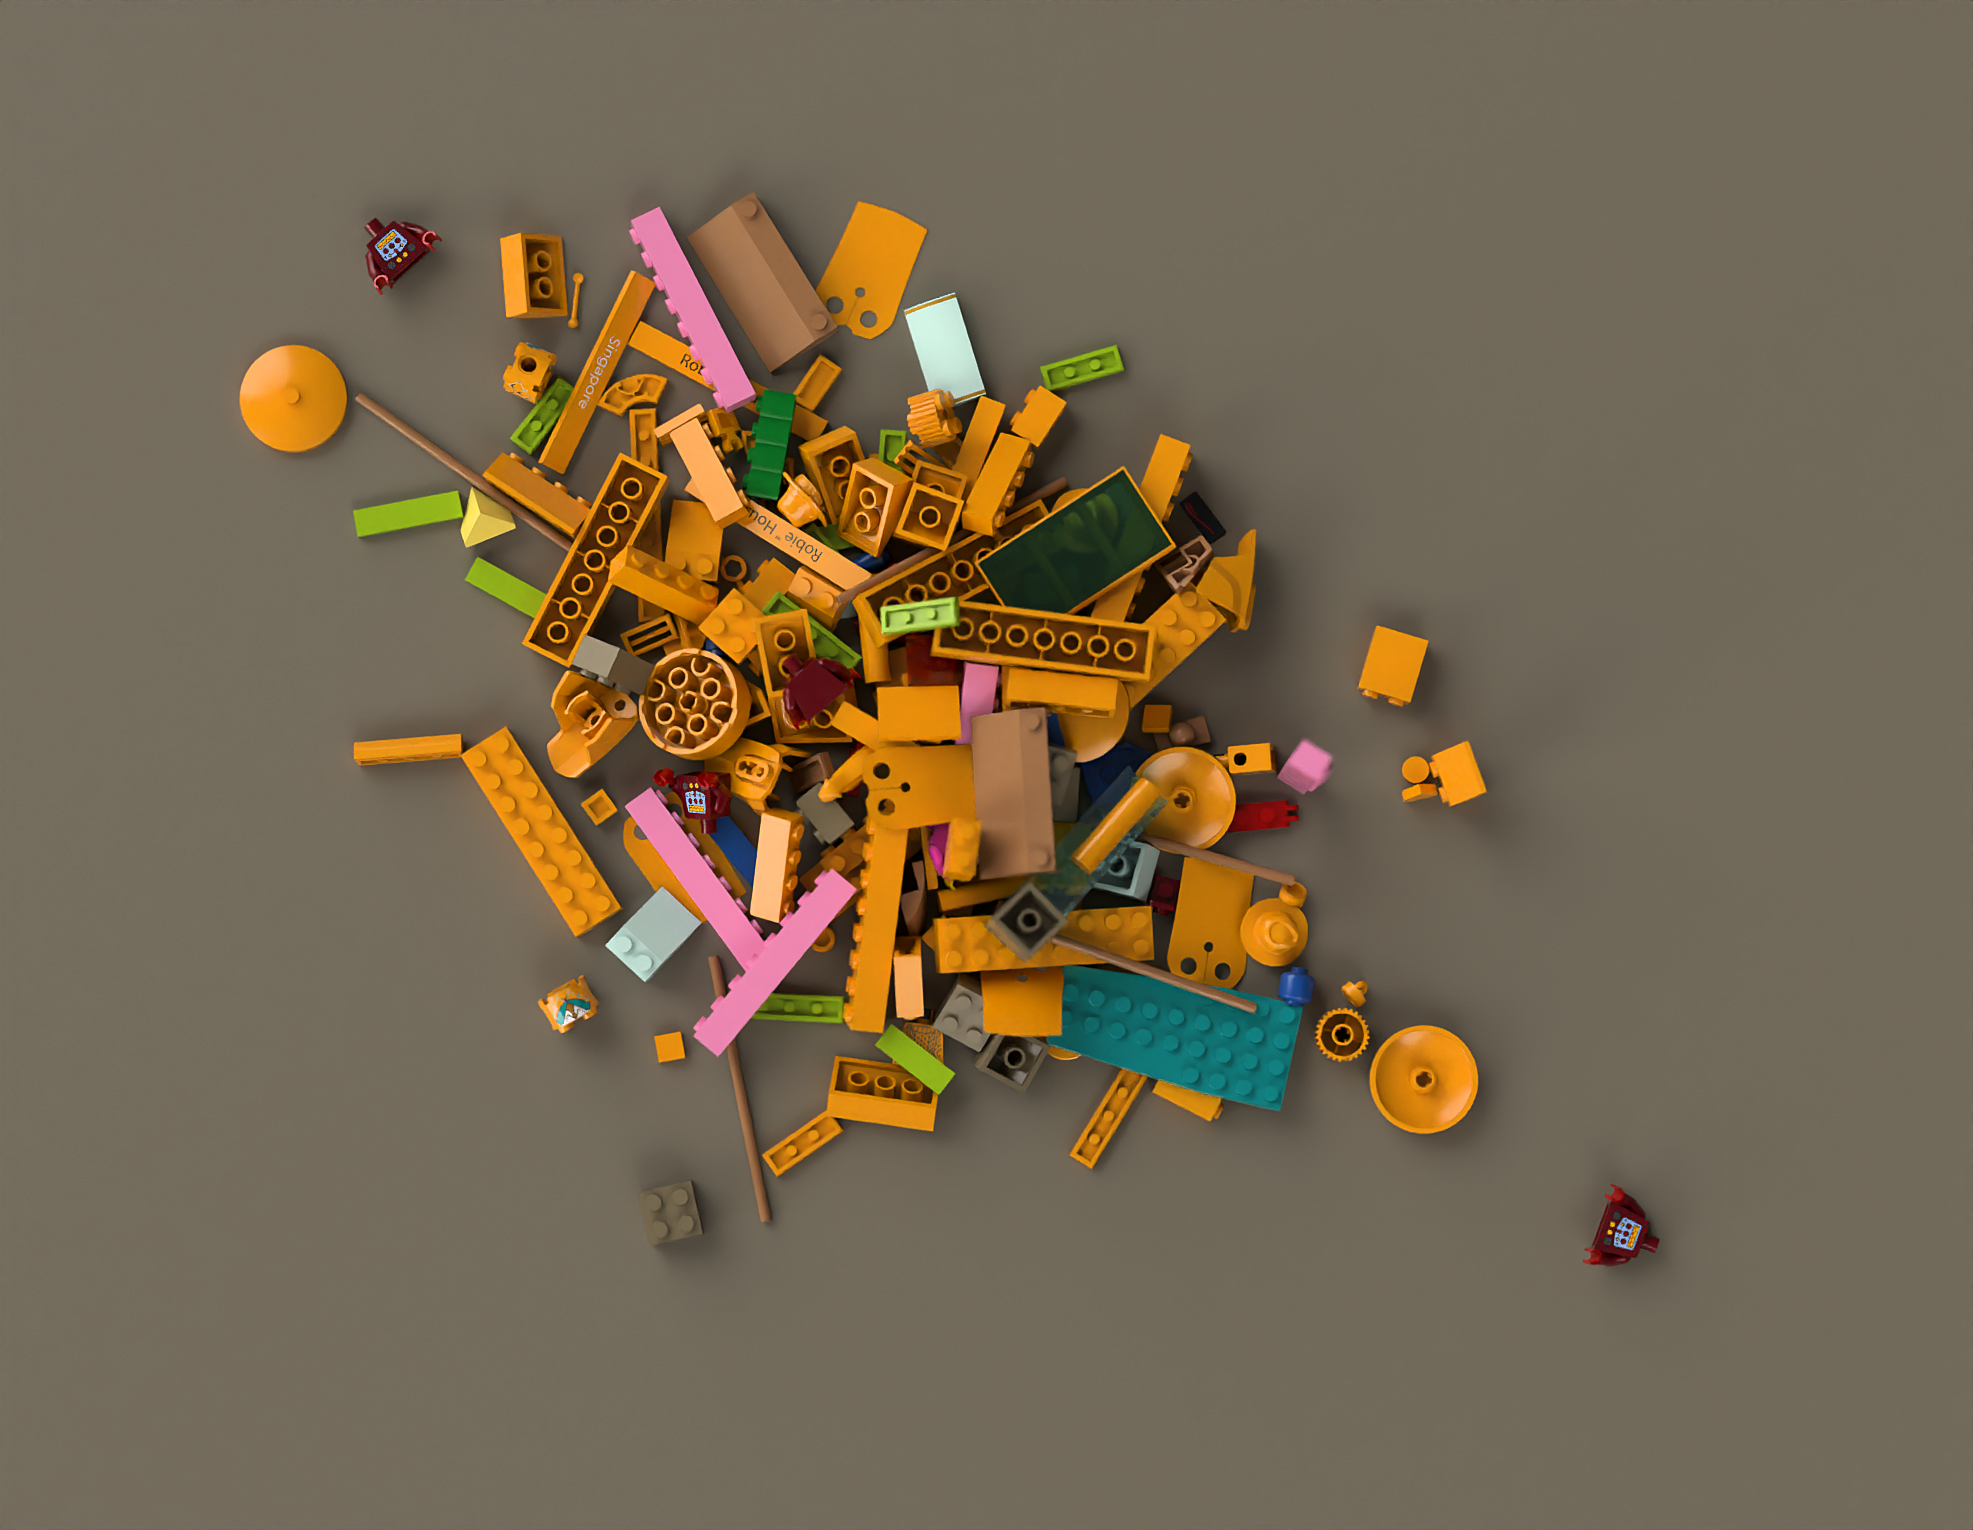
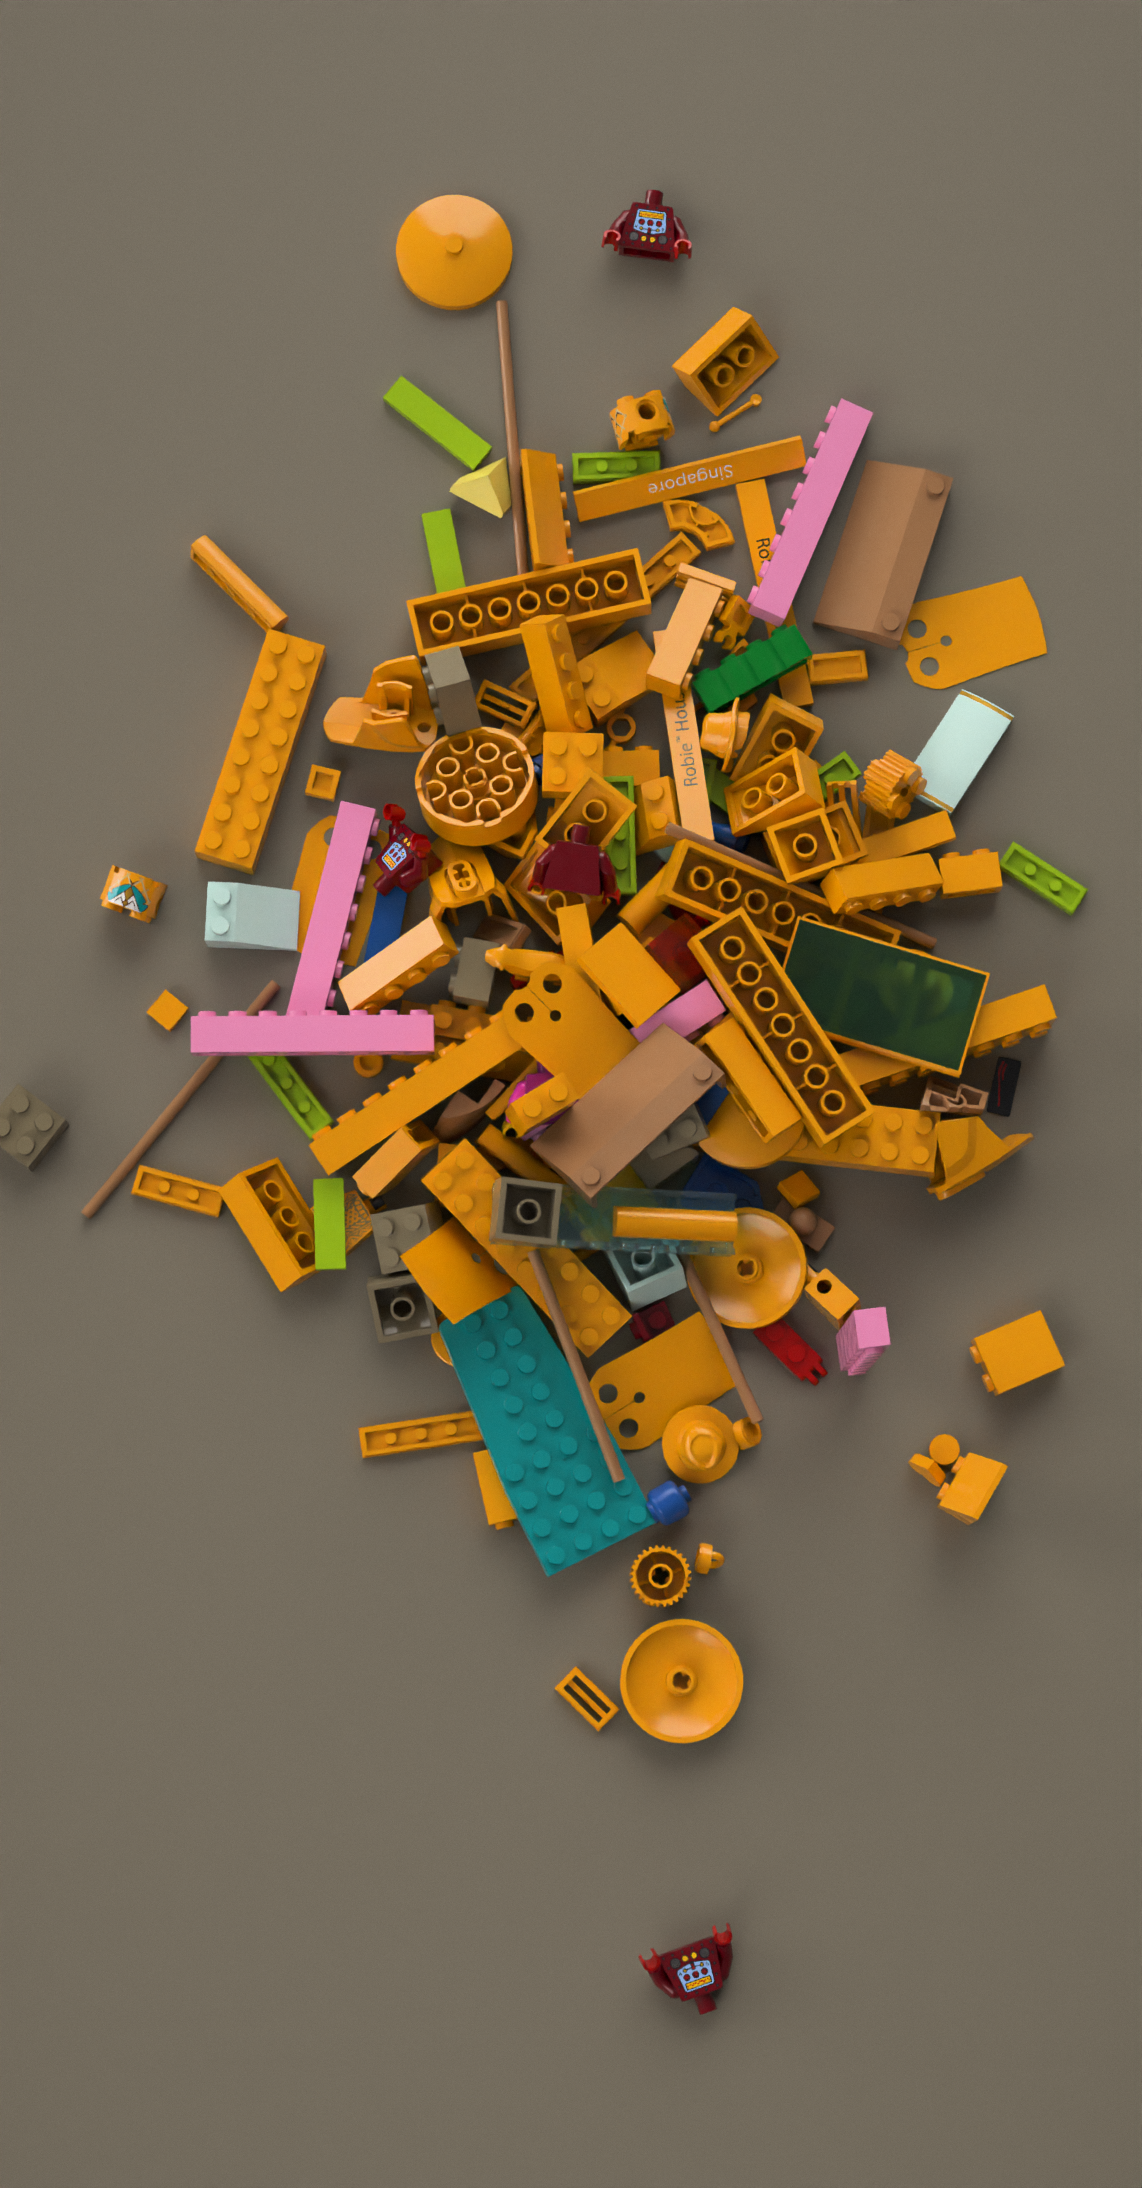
camera: 45 degrees right, 5 degrees down
(920, 616) = (712, 903): lime tile -> none
(1357, 1154) = (568, 1680): none -> light orange tile

